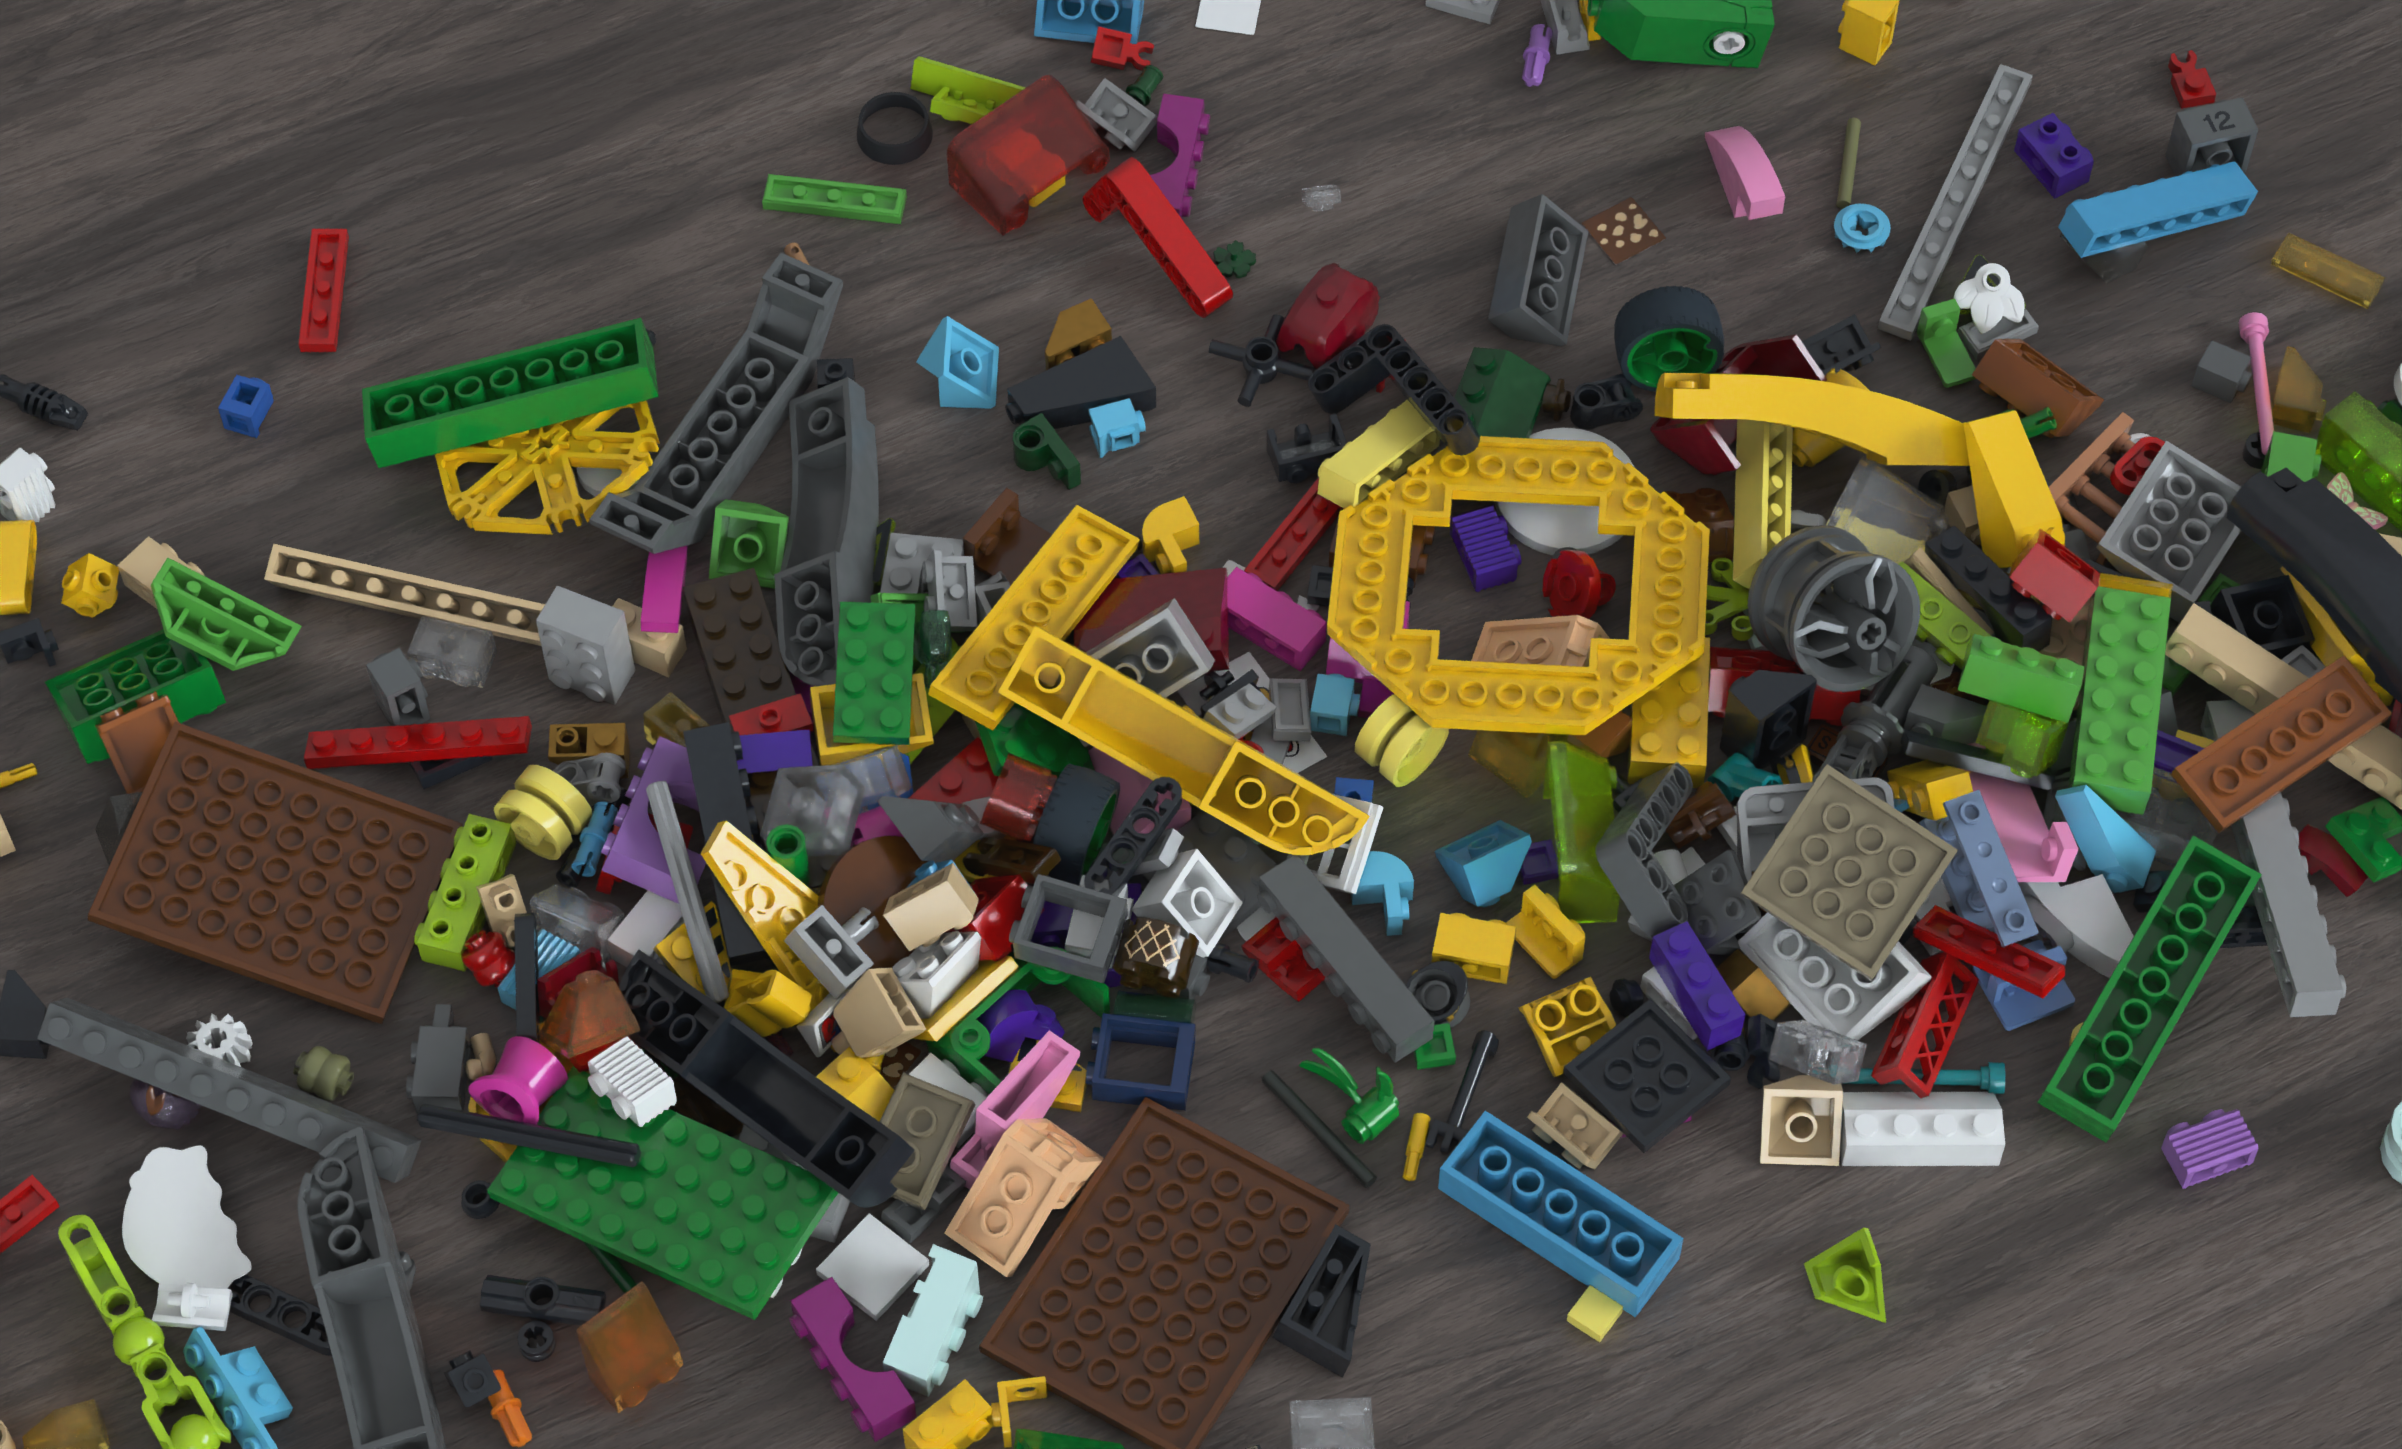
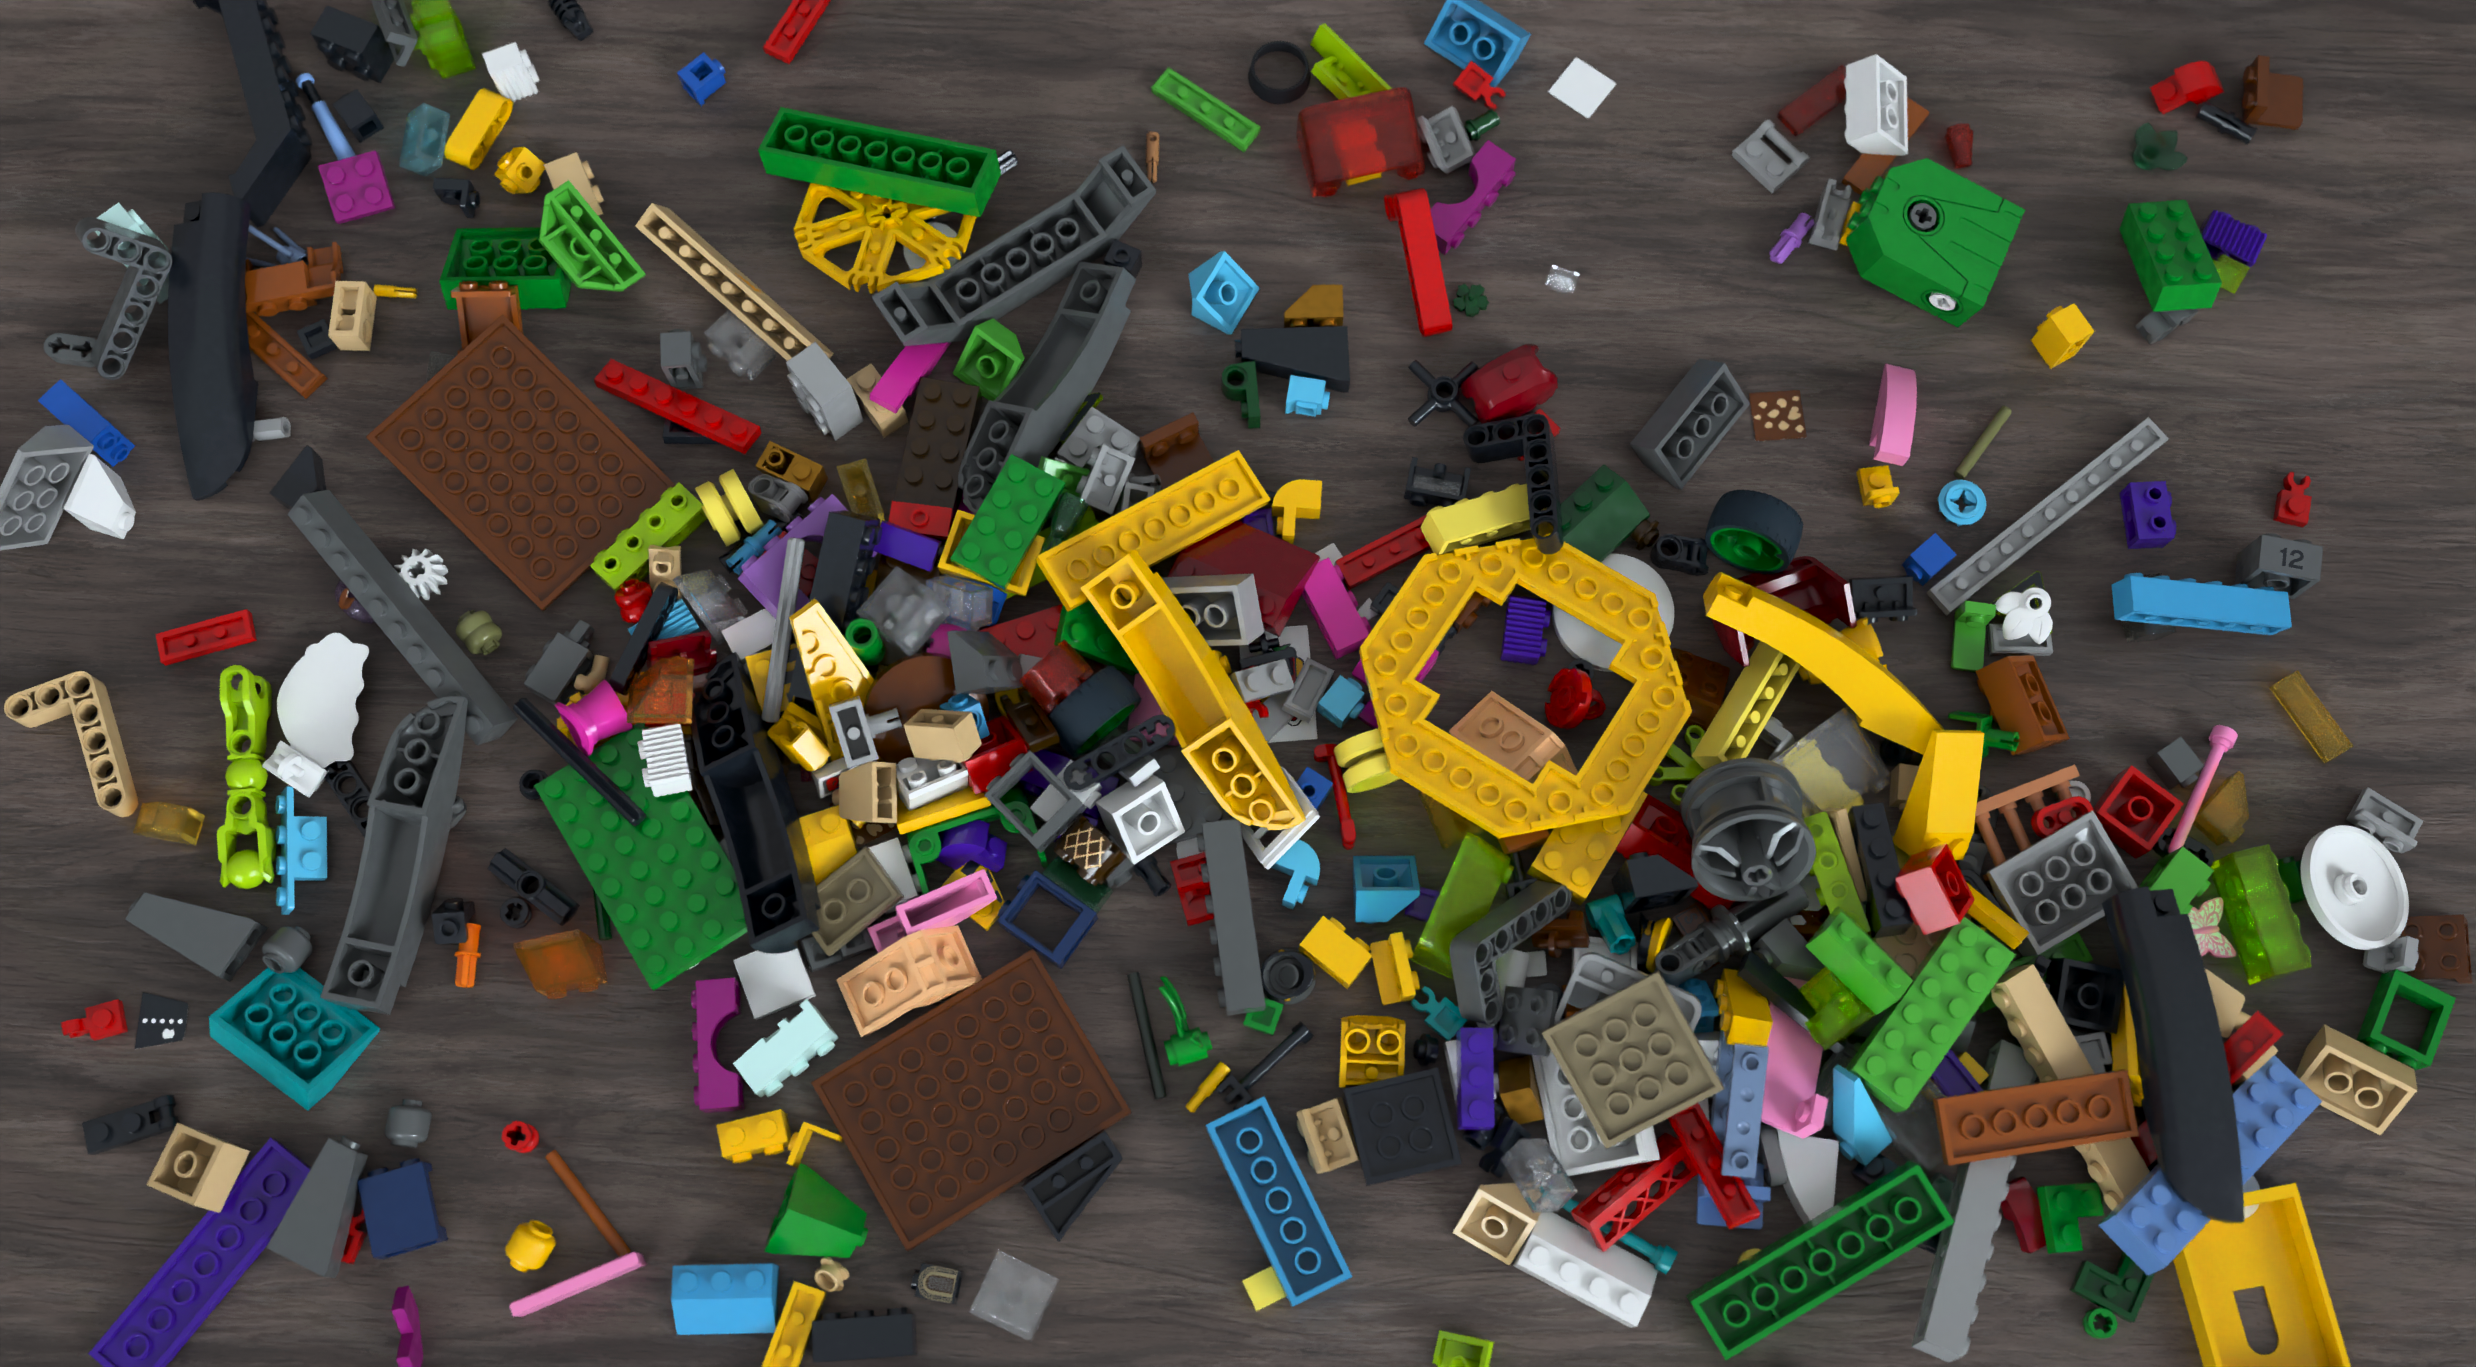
camera: 25 degrees right, 15 degrees up
(1414, 820) = (1325, 753): none -> red hinge
(1625, 957) = (1443, 1016): none -> teal plate
(1766, 251) = (1876, 486): none -> yellow bracket
(1861, 293) = (1928, 559): none -> blue brick
(2211, 428) = (2135, 811): none -> red brick

